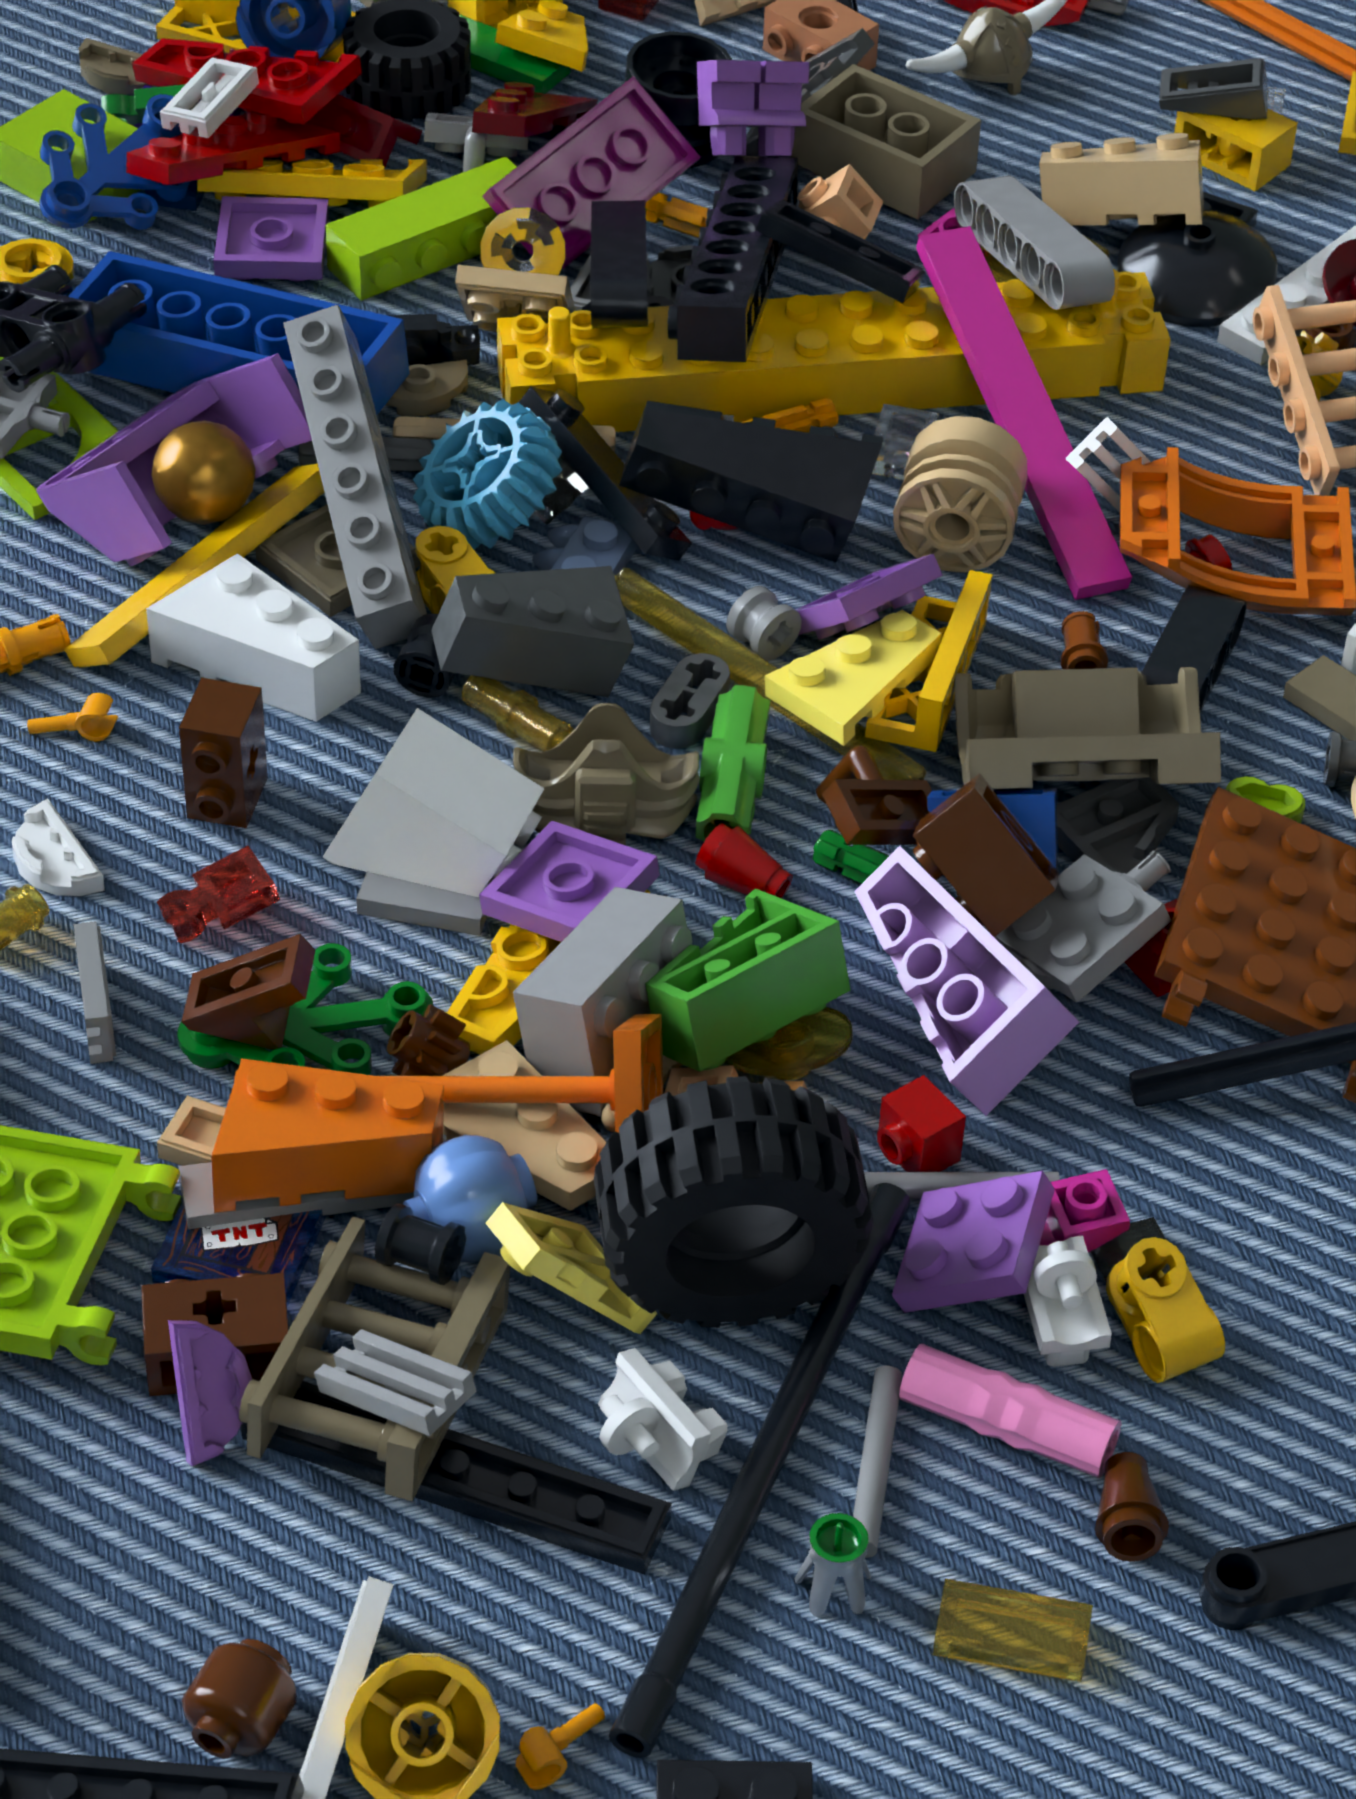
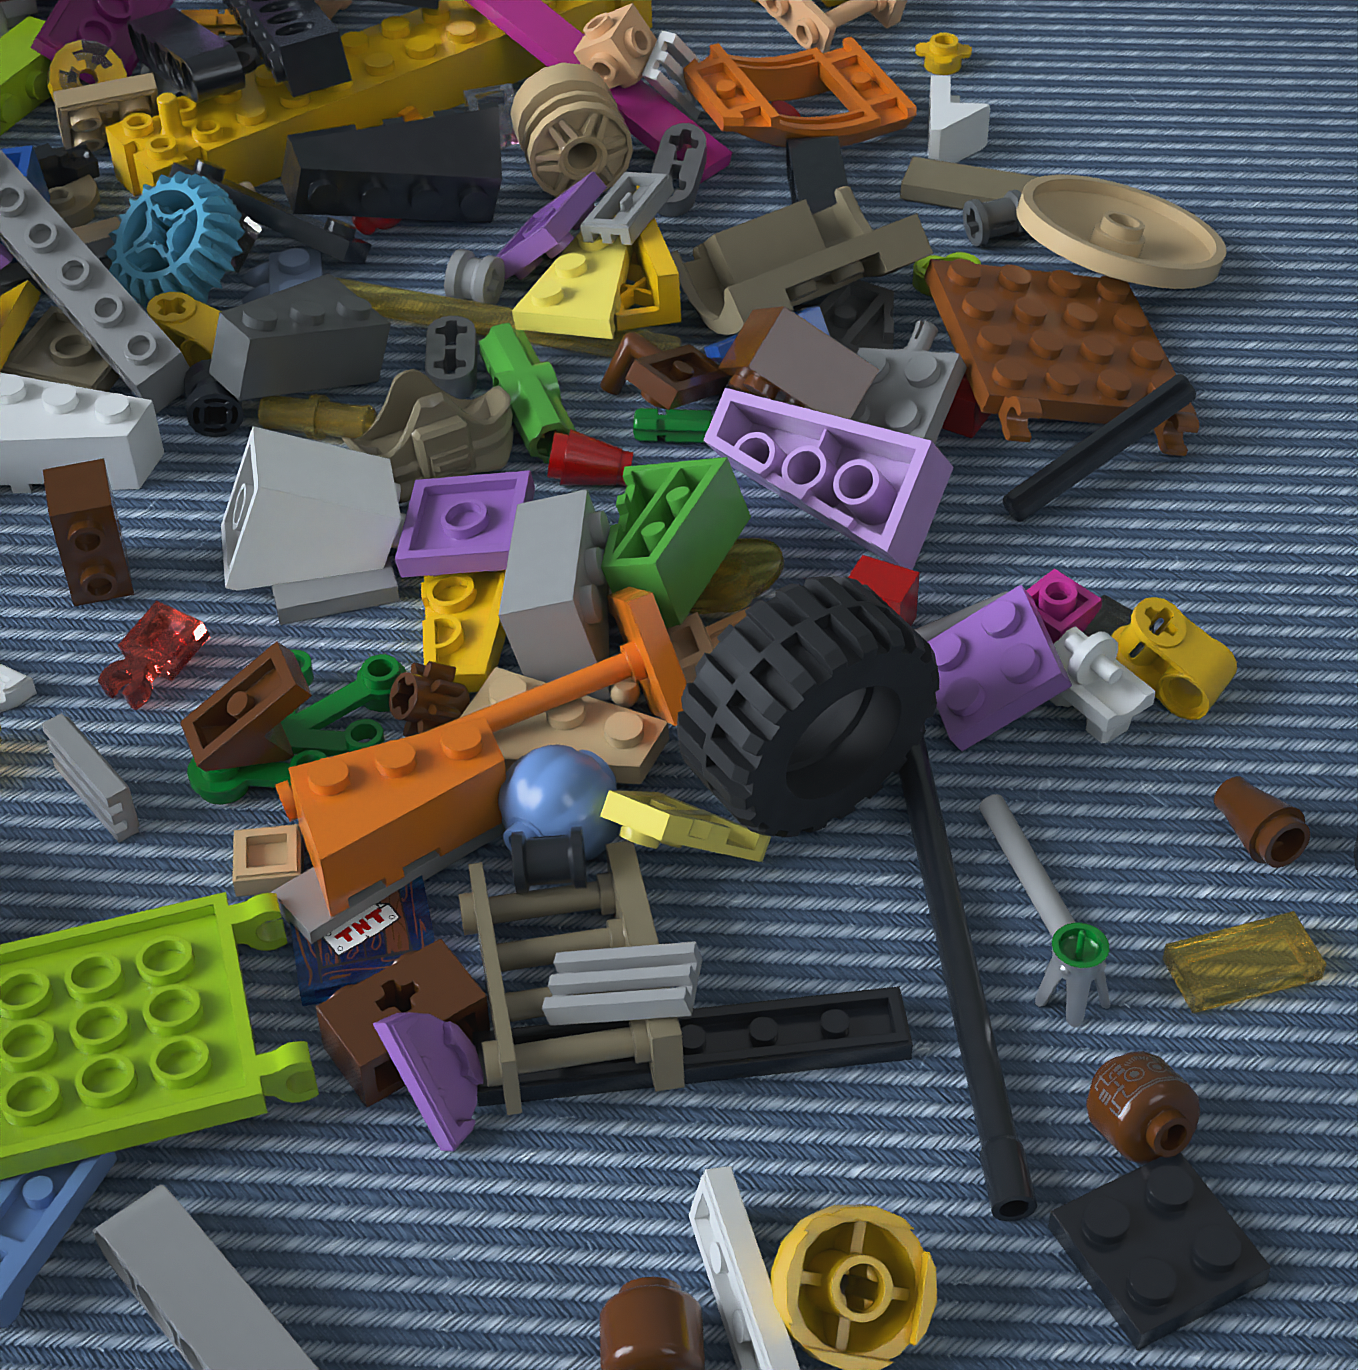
camera: 25 degrees left, 0 degrees up
(540, 1750) = (950, 1257): light orange hand -> none
(649, 1416) = (839, 921): white hips -> none
(804, 1703) = (1143, 1107): none -> reddish brown head
(947, 607) = (635, 211): none -> light grey tile
(1010, 1410) = (1113, 787): bright pink axle -> none
(1047, 572) = (687, 171): none -> flat silver beam
(1053, 416) = (617, 46): none -> light nougat brick
(1082, 642) = (729, 207): dark orange pin -> none

